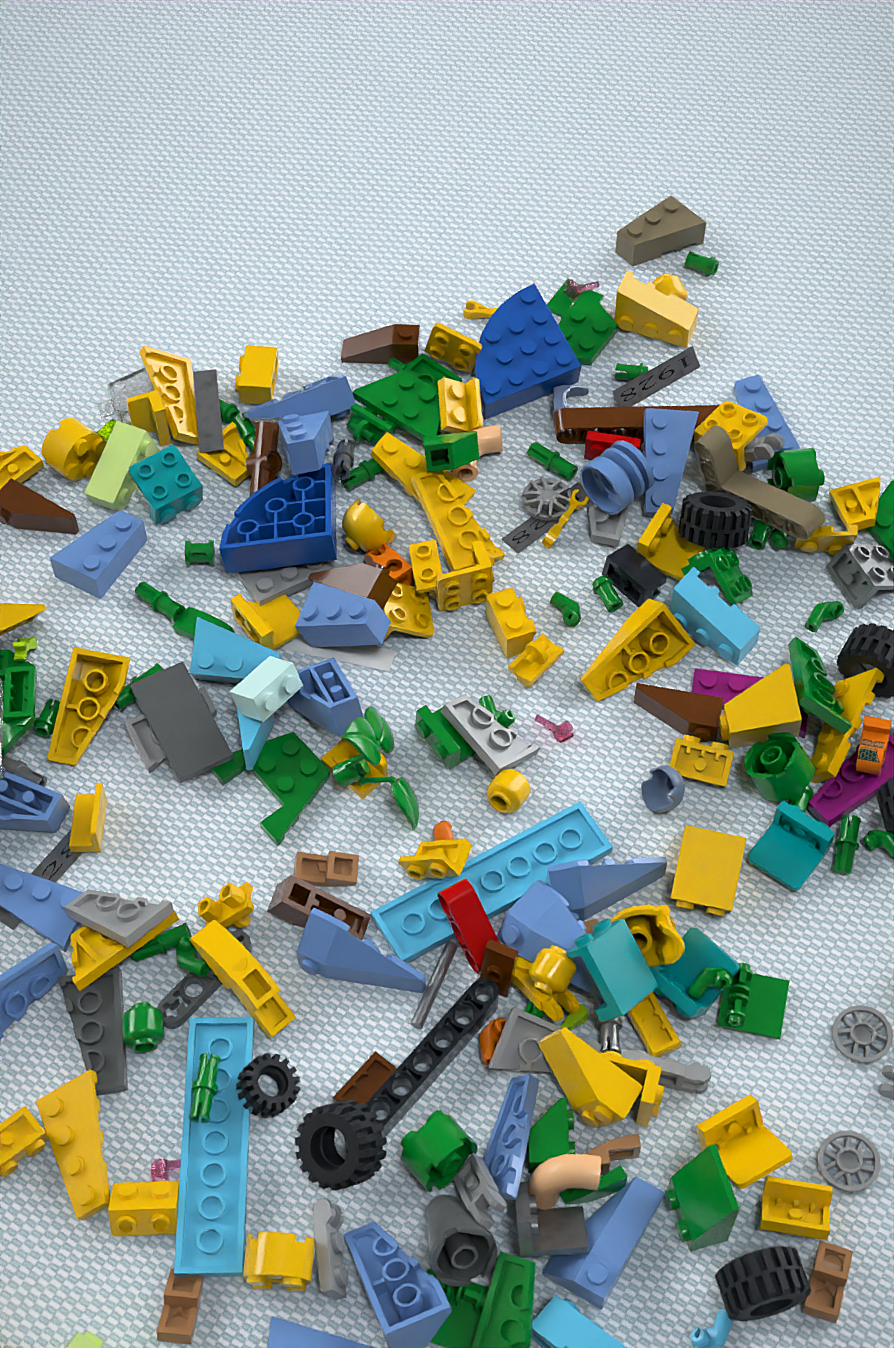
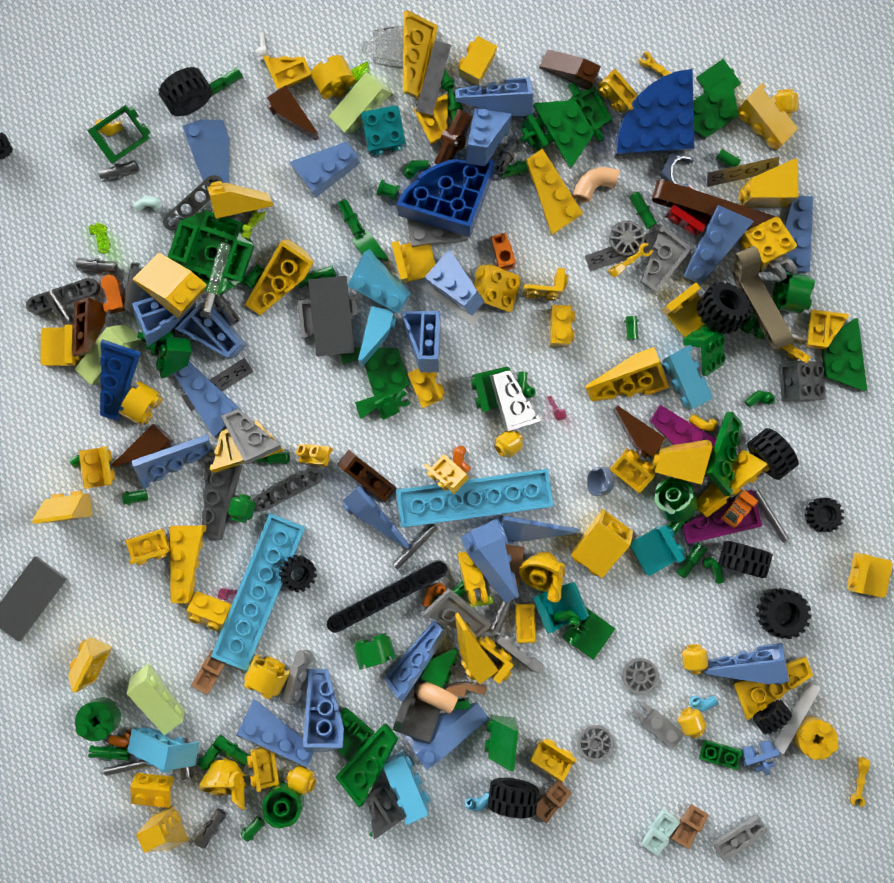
camera: 20 degrees right, 30 degrees up
(88, 821) = (255, 359): yellow panel -> none
(149, 414) = (393, 67): yellow panel -> none
(187, 958) = (280, 477): green arm -> none
(204, 1088) = (261, 561): green pin -> none
(223, 517) = (414, 166): none -> green arm
(244, 975) = (306, 503): yellow slope -> none
(266, 688) = (387, 323): light aqua brick -> none
(312, 806) = (389, 405): none -> green plate
(319, 1150) = (322, 628): black tyre -> none
(327, 871) = (382, 448): medium nougat slope -> none
(359, 579) = (478, 268): slope -> none
(365, 528) = (499, 218): yellow cylinder -> none
(366, 1080) = (352, 592): reddish brown plate -> none
(367, 736) = (426, 397): green plant -> none
(425, 566) = (525, 265): yellow bracket -> none
(450, 450) = (575, 186): green slope -> none
(451, 520) = (557, 236): yellow wing -> none
(457, 1243) = (363, 705): dark grey cone -> none
(460, 405) = (600, 145): yellow bracket -> none
(467, 921) = (448, 525): red beam -> none
(478, 1190) = (385, 687): light grey hinge -> none
(499, 965) = (452, 559): reddish brown plate -> none
(535, 660) = (564, 360): yellow hips -> none
(552, 970) = (480, 579): yellow head -> none
(569, 608) = (603, 329): green arm -> none
(574, 290) = (723, 73): hand -> none
(615, 967) = (515, 592): teal panel -> none
(617, 477) = (675, 252): medium blue wheel -> none
(633, 575) = (654, 321): black hinge -> none
(659, 230) = (805, 45): dark tan wedge -> none
(702, 263) = (821, 84): green pin -> none
(702, 374) = (772, 188): none -> yellow slope
(743, 1142) = (541, 716): yellow bracket -> none
(762, 669) = (702, 424): none -> yellow arm

